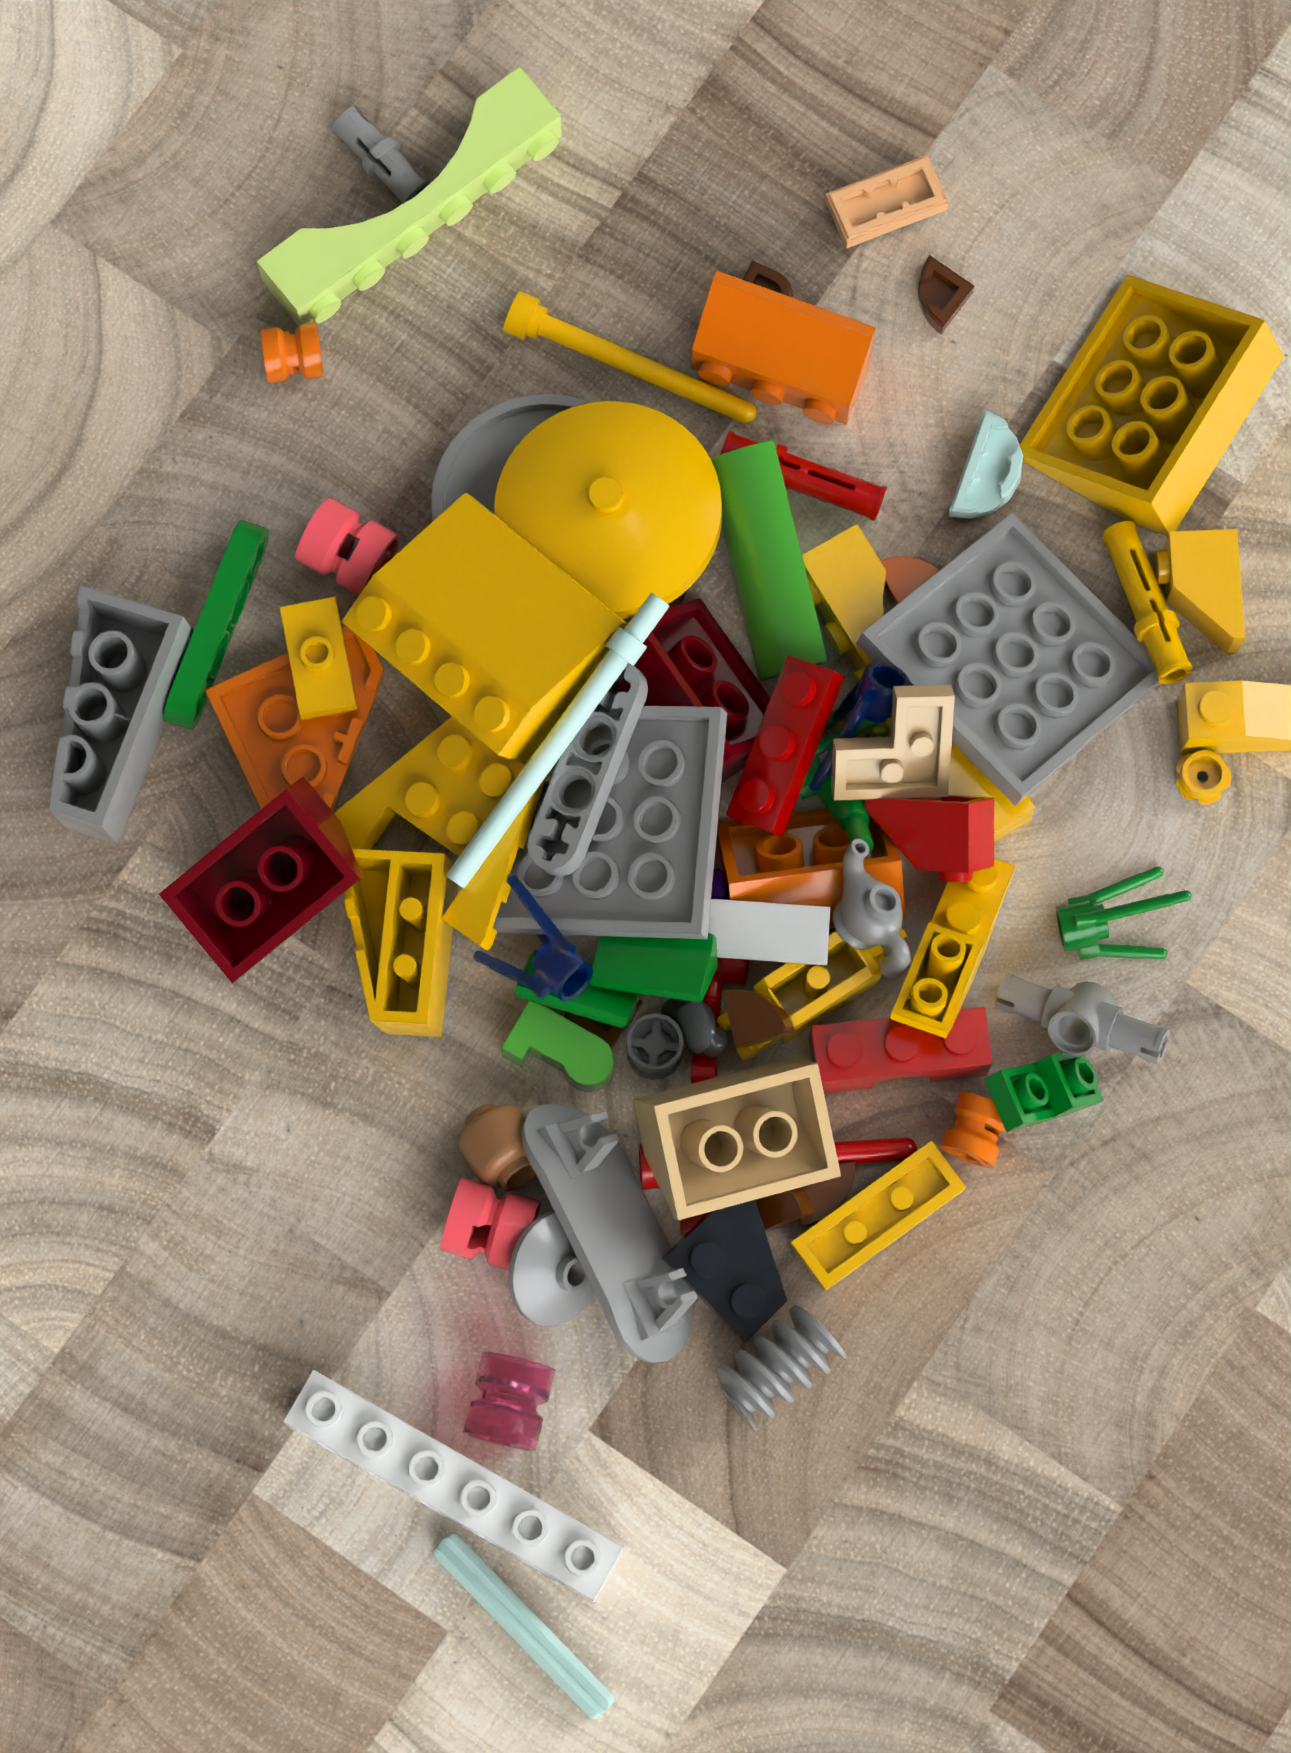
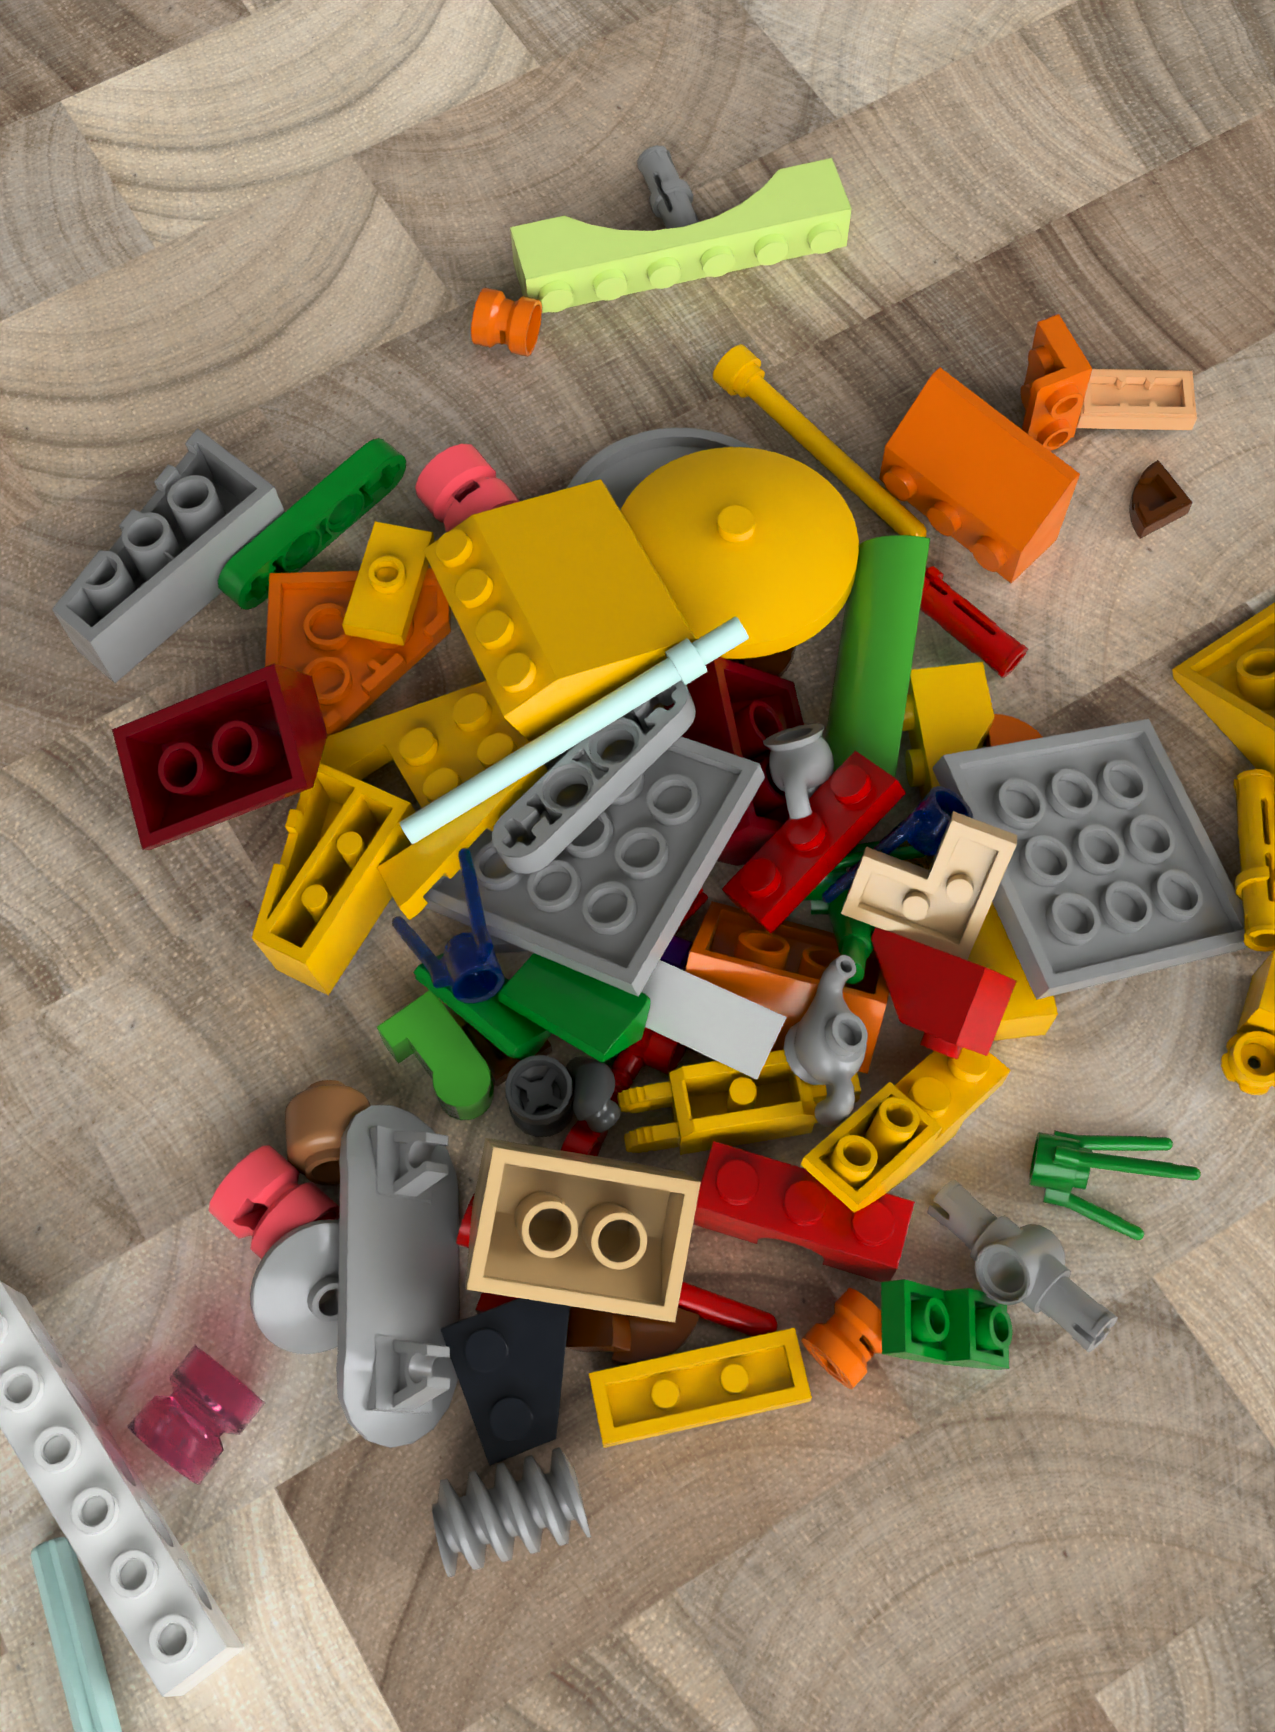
camera: 25 degrees right, 10 degrees down
(746, 683) = (799, 765): none -> light grey piece
(755, 1018) = (654, 1106): reddish brown tile -> none
(815, 232) = (1054, 384): none -> orange bracket
(990, 470) = (1139, 674): light aqua plate -> none

